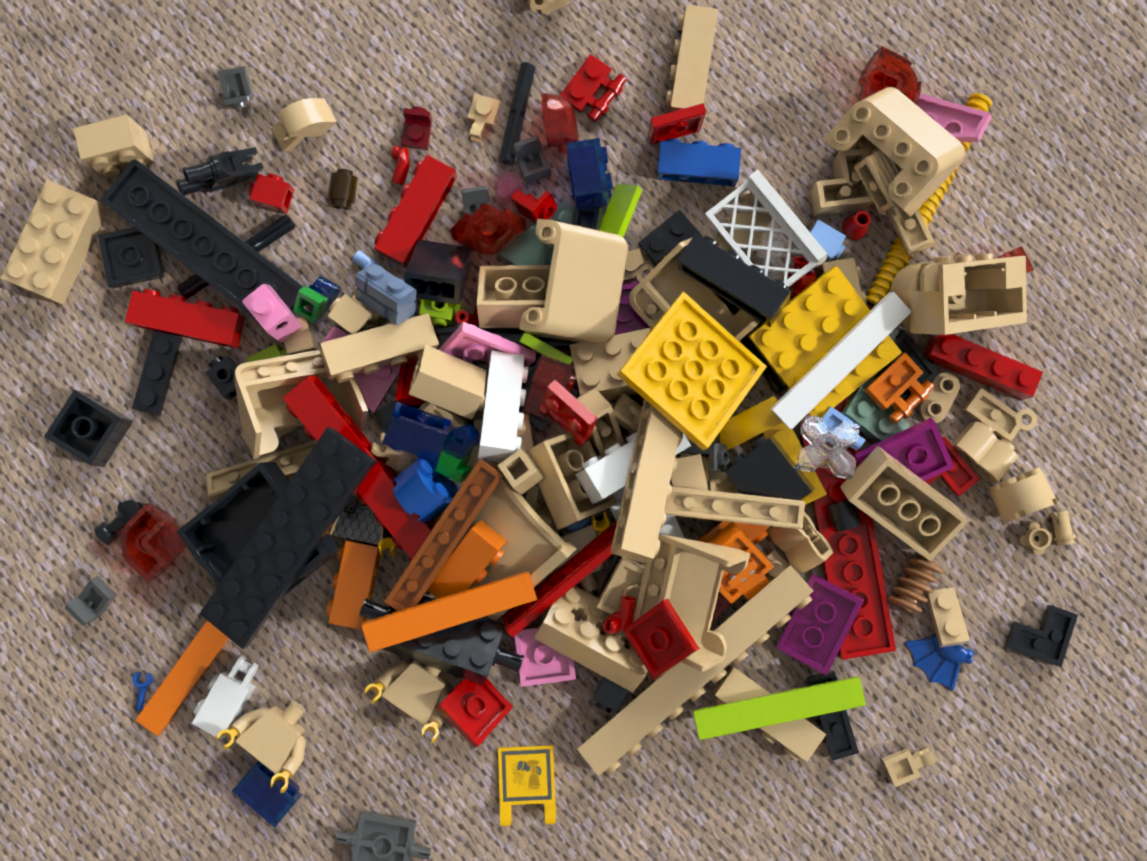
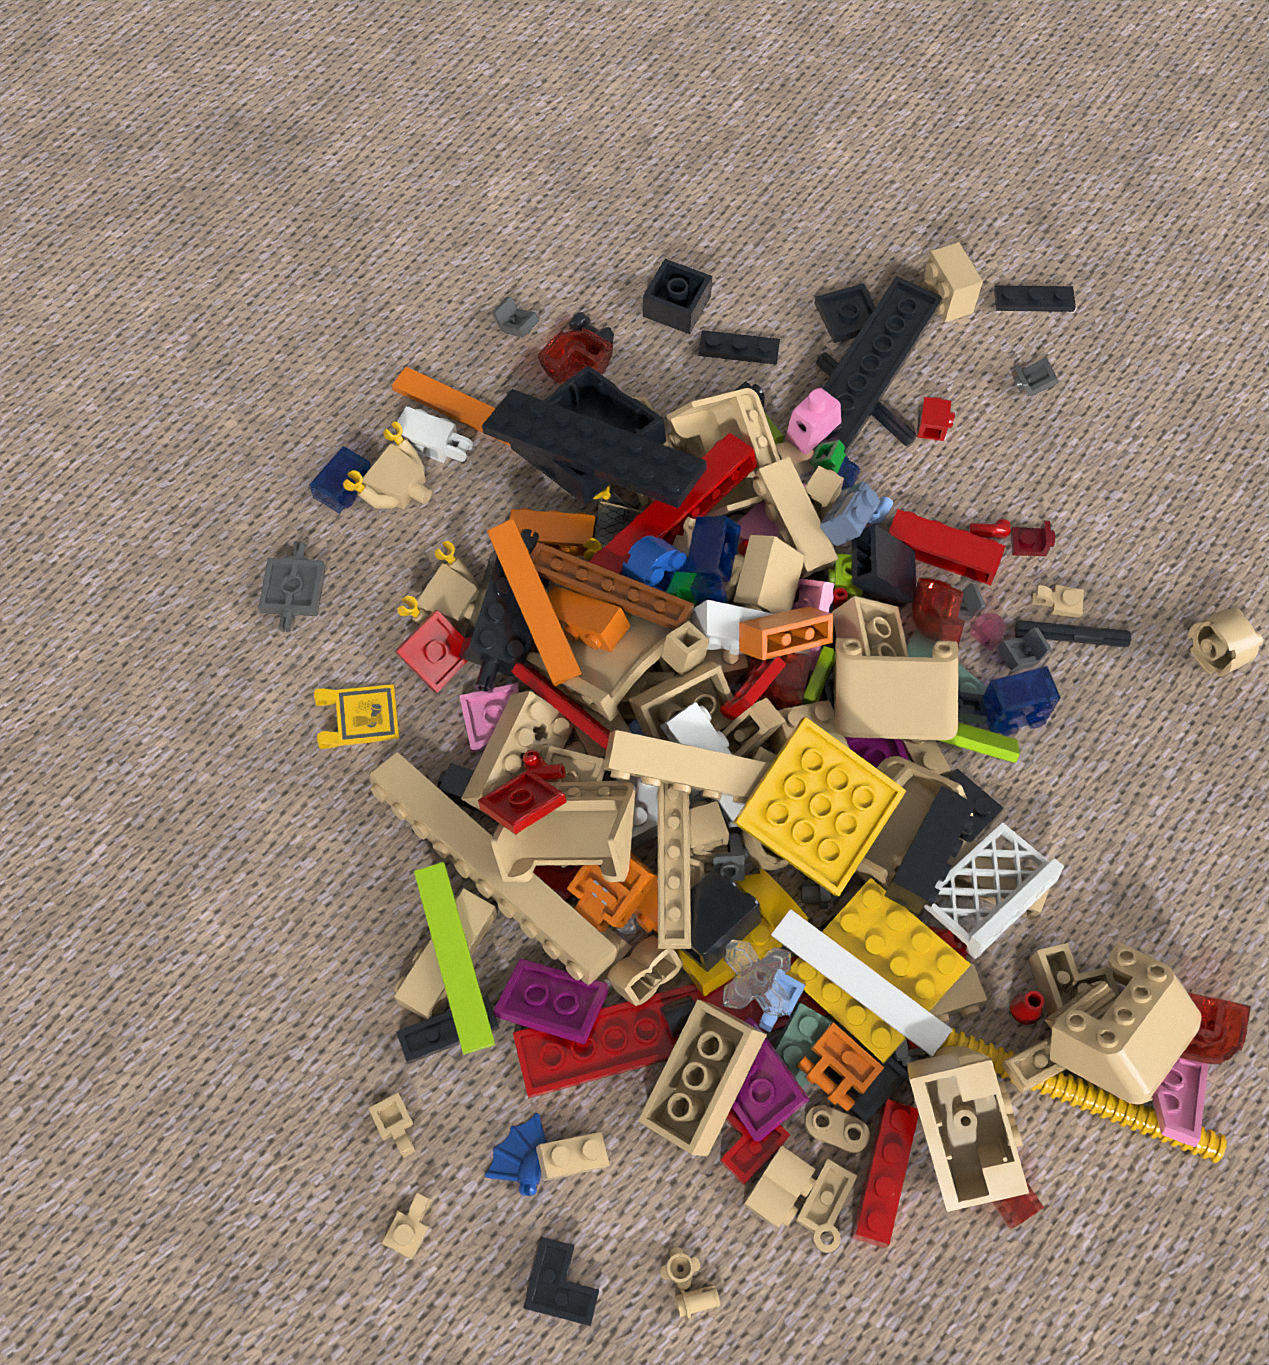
camera: 85 degrees right, 20 degrees down
(54, 242) = (848, 251): tan brick -> none
(138, 67) = (1035, 298): none -> black plate
(142, 688) = (442, 373): blue hand -> none
(185, 319) = (795, 359): red brick -> none
(219, 172) = (945, 366): black connector -> none
(301, 120) = (1016, 436): tan brick -> none
(342, 189) = (953, 479): dark brown brick -> none
(516, 375) = (785, 632): none -> orange brick
(532, 208) = (972, 660): red bracket -> none
(559, 122) = (1072, 664): clear red brick -> none
(587, 82) = (1123, 699): red plate -> none
(676, 124) = (1098, 787): red plate -> none
(693, 58) = (1176, 803): tan brick -> none
(698, 162) = (1061, 819): blue brick -> none
(829, 239) = (998, 968): light blue brick -> none
(915, 584) = (608, 1113): medium nougat piece -> none
(990, 756) = (407, 1230): none -> tan plate
(1022, 495) = (731, 1235): tan brick -> none

